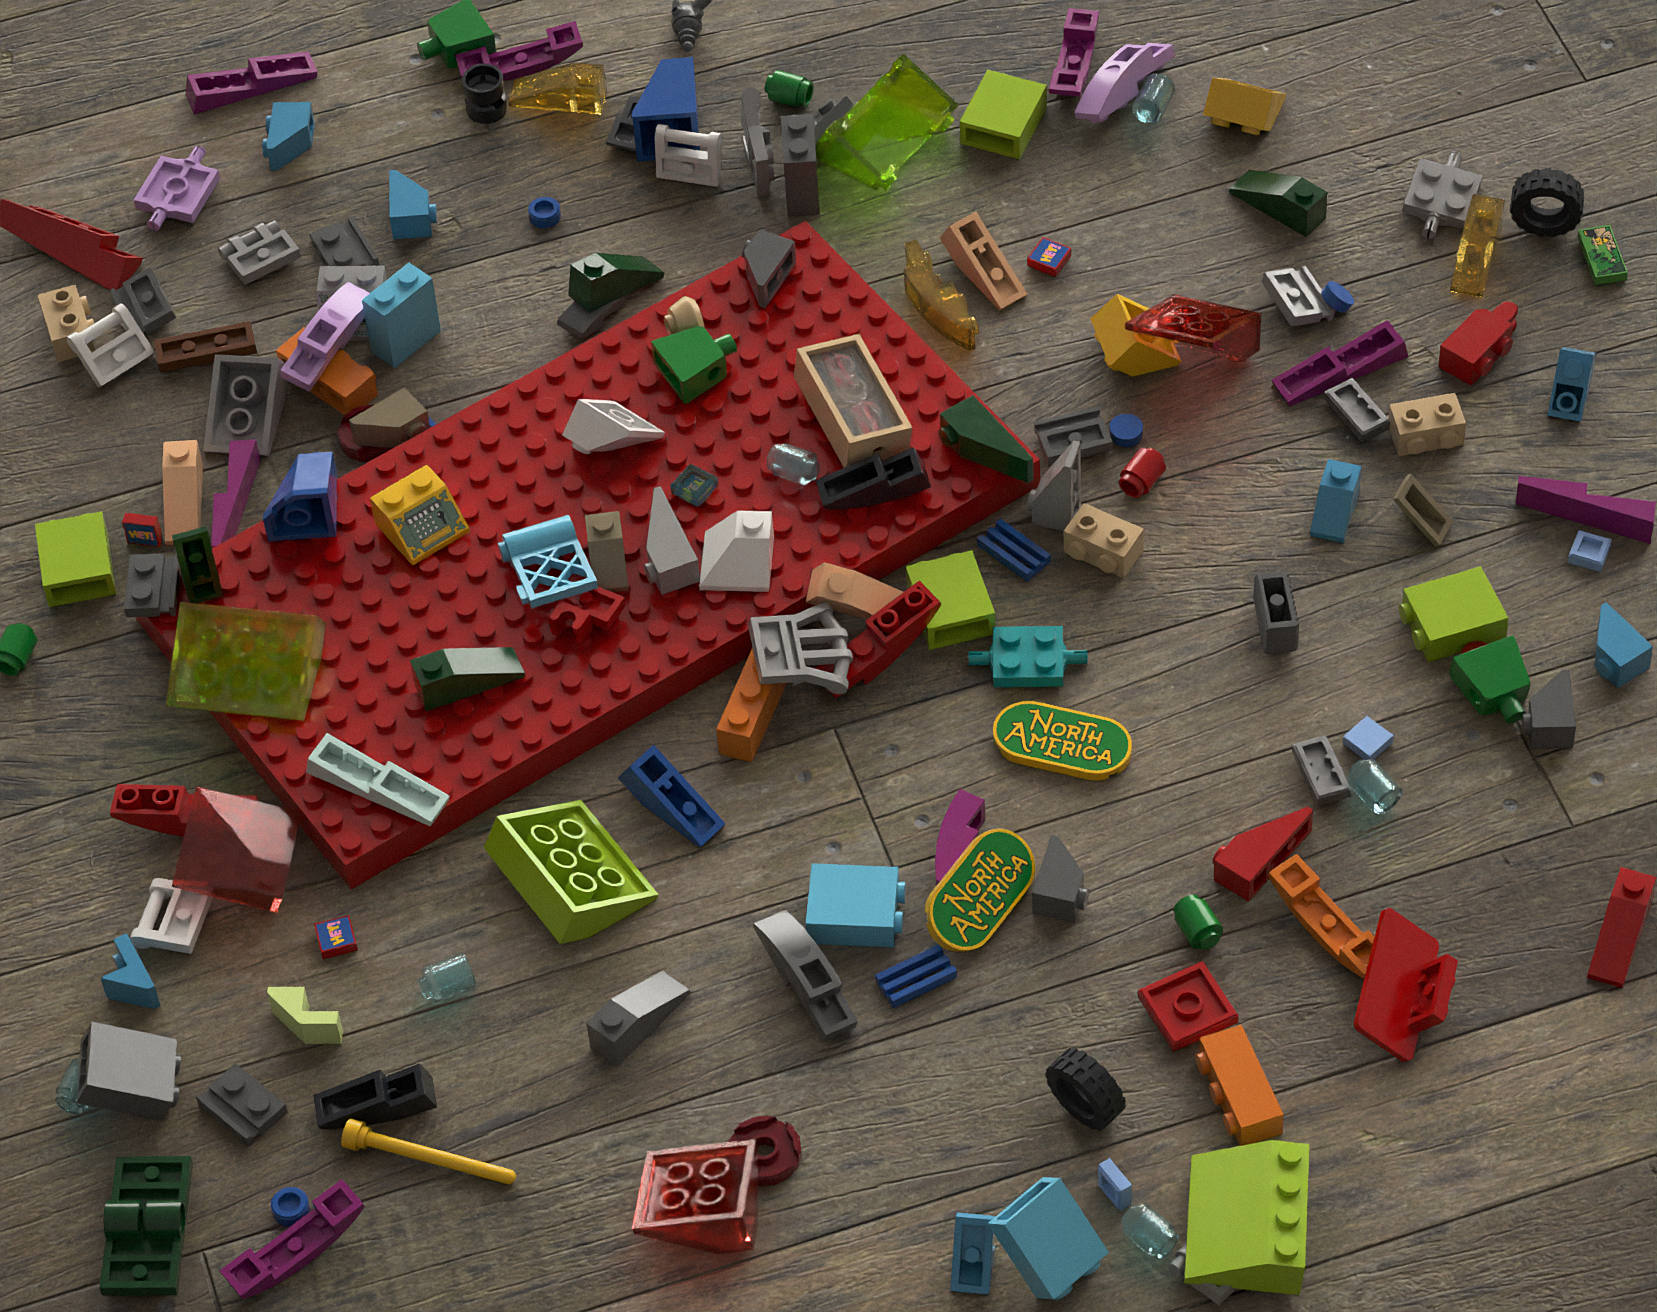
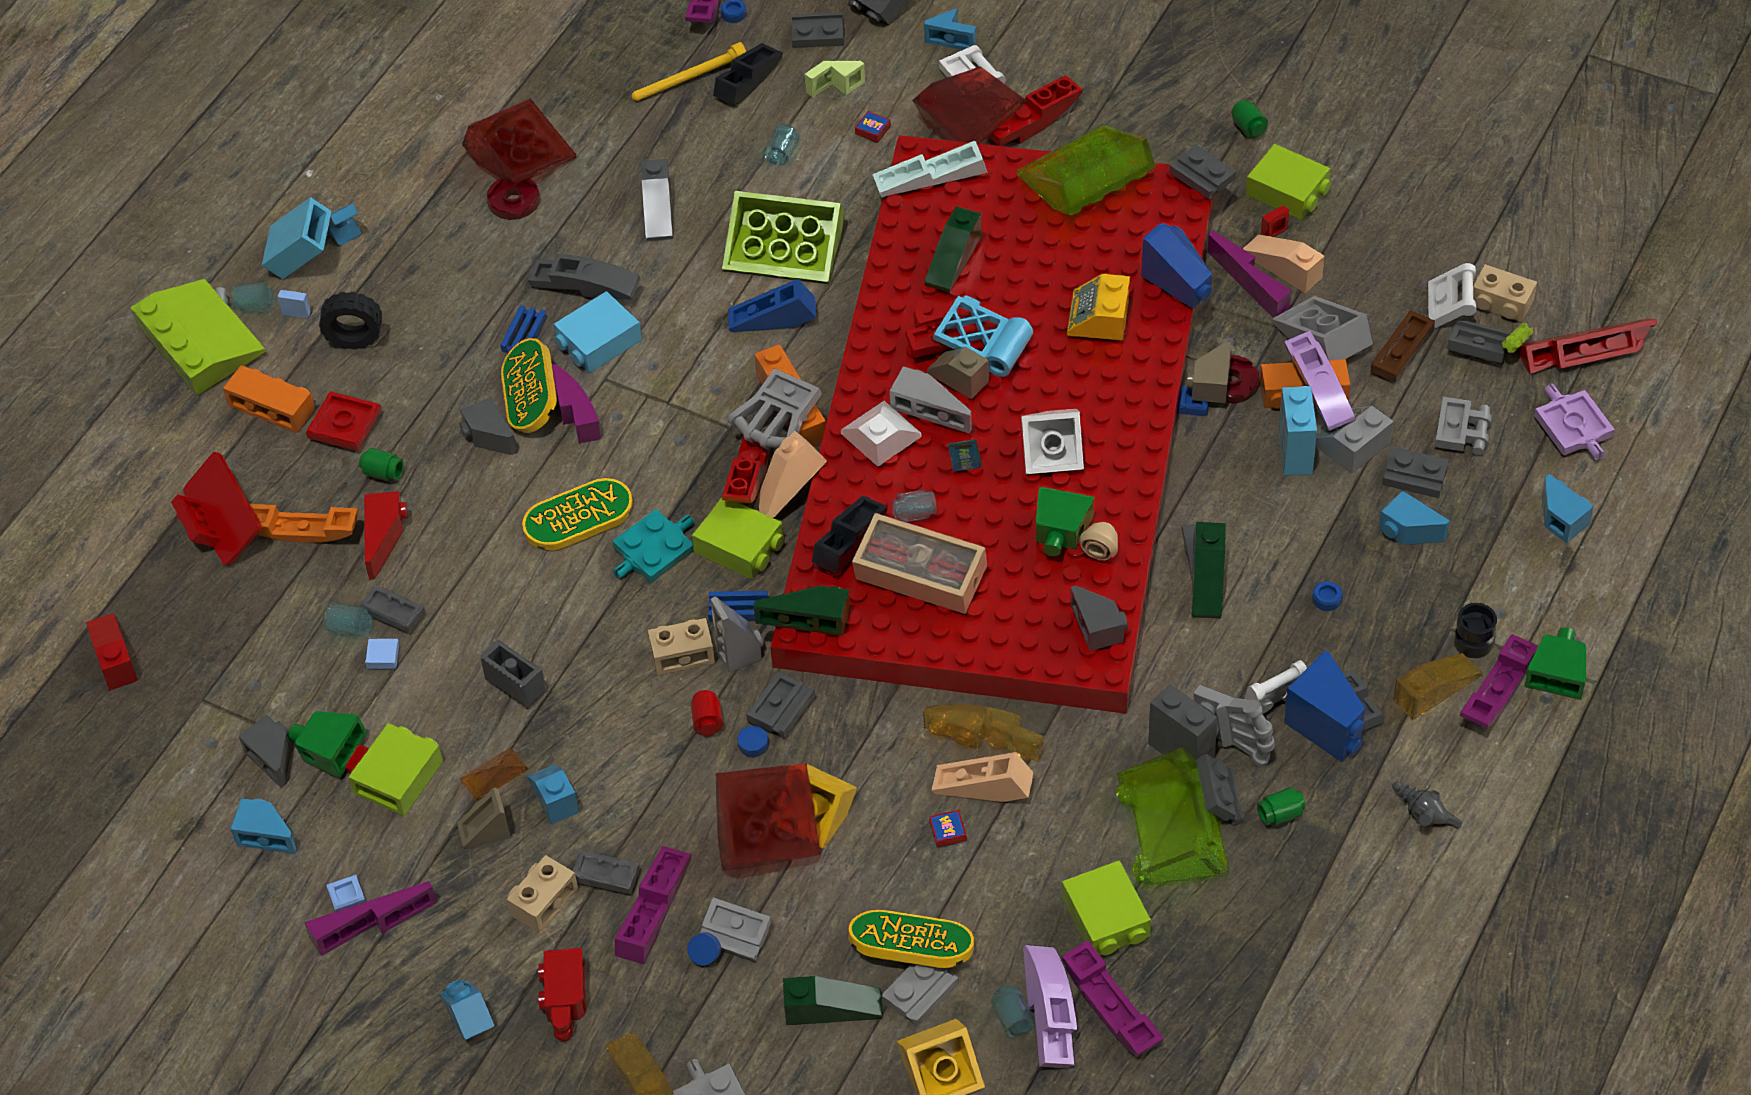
camera: 135 degrees right, 0 degrees up
(117, 275) = (1517, 338): none -> lime axle
(197, 565) = (1177, 172): dark green slope -> none
(262, 76) = (1649, 531): magenta slope -> none
(1171, 192) = (911, 938): none -> tile
(1200, 167) = (919, 991): none -> light grey plate
(1369, 558) = (493, 773): none -> clear orange slope

